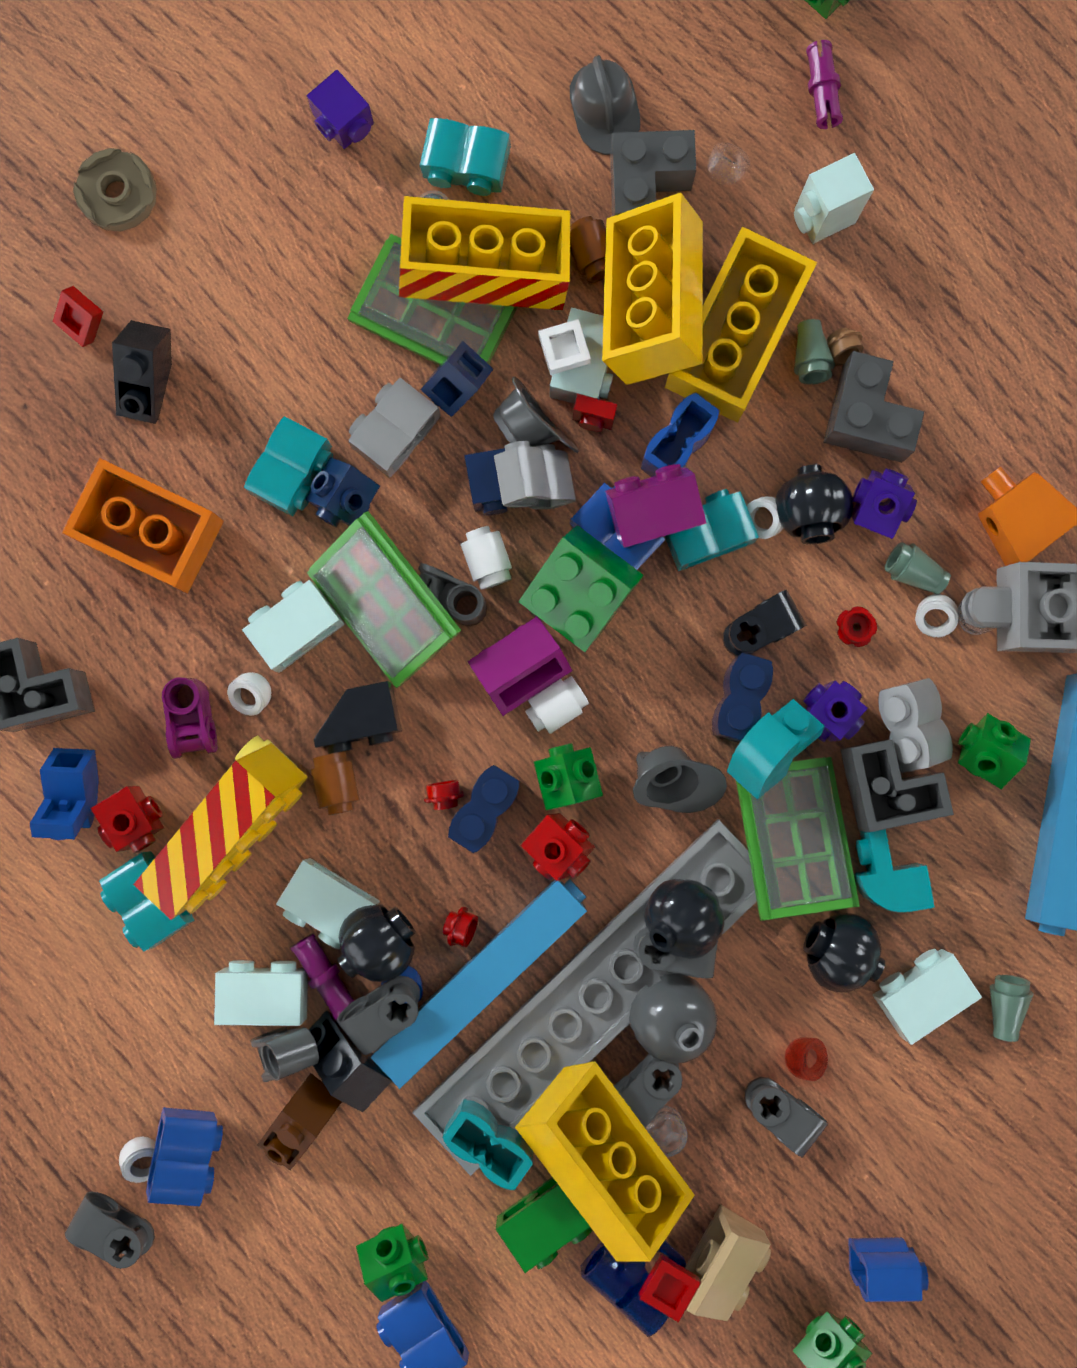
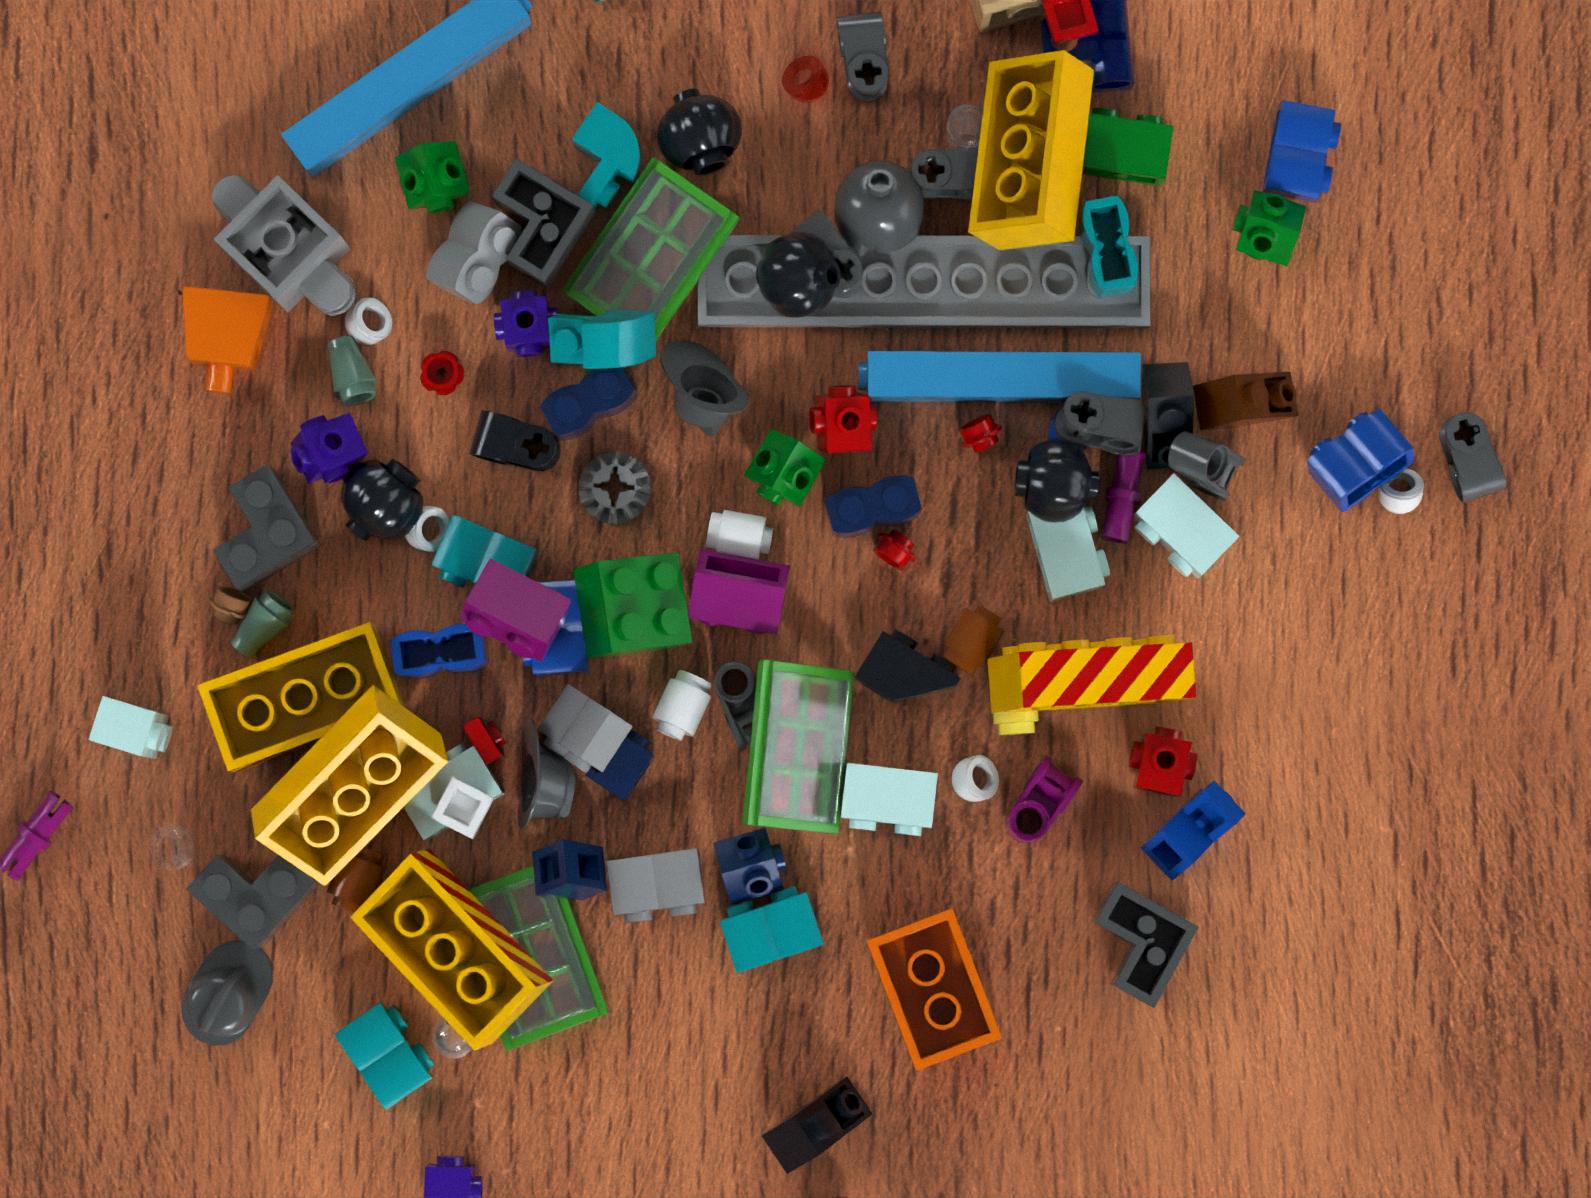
camera: 140 degrees left, 0 degrees up
(144, 922) = (1217, 675): teal brick -> none
(668, 679) = (629, 503): none -> light grey gear
(926, 994) = (667, 42): light aqua brick -> none

